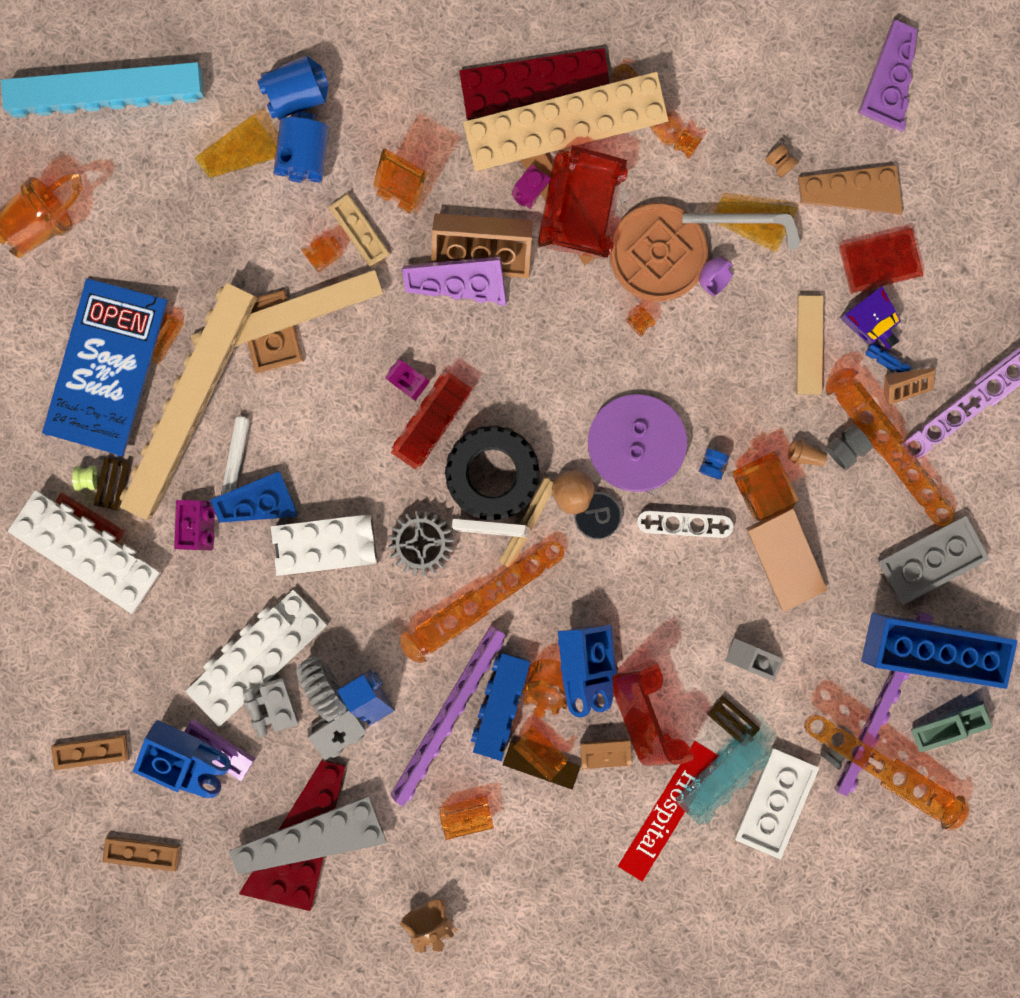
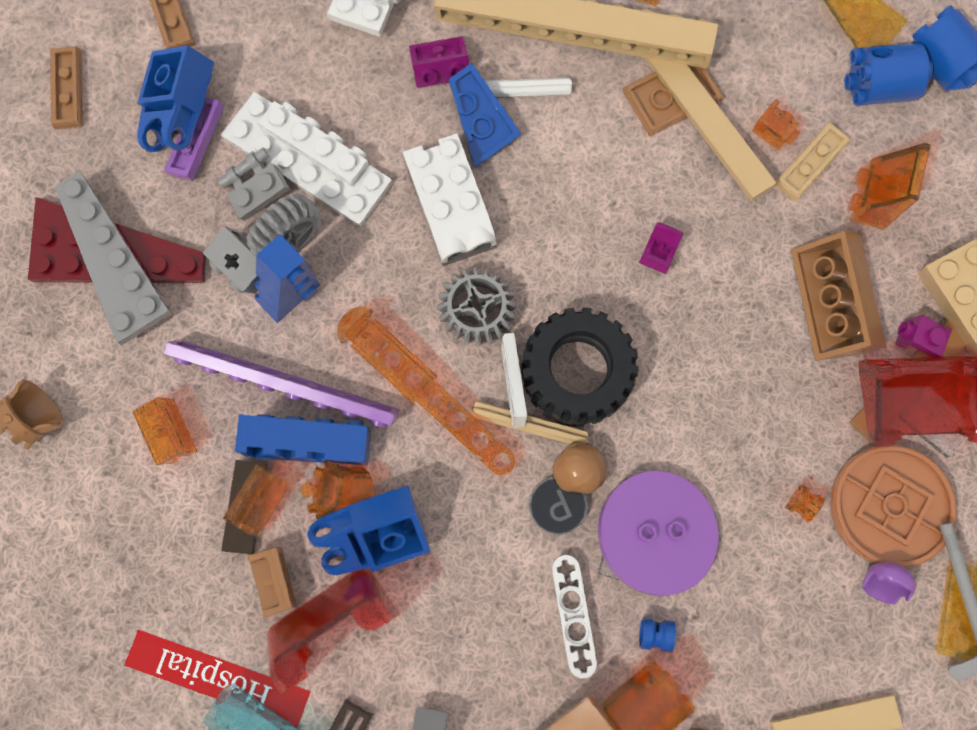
camera: 75 degrees right, 10 degrees down
(432, 421) = (619, 284): clear red wedge -> none
(468, 279) = (794, 287): medium lavender wing -> none

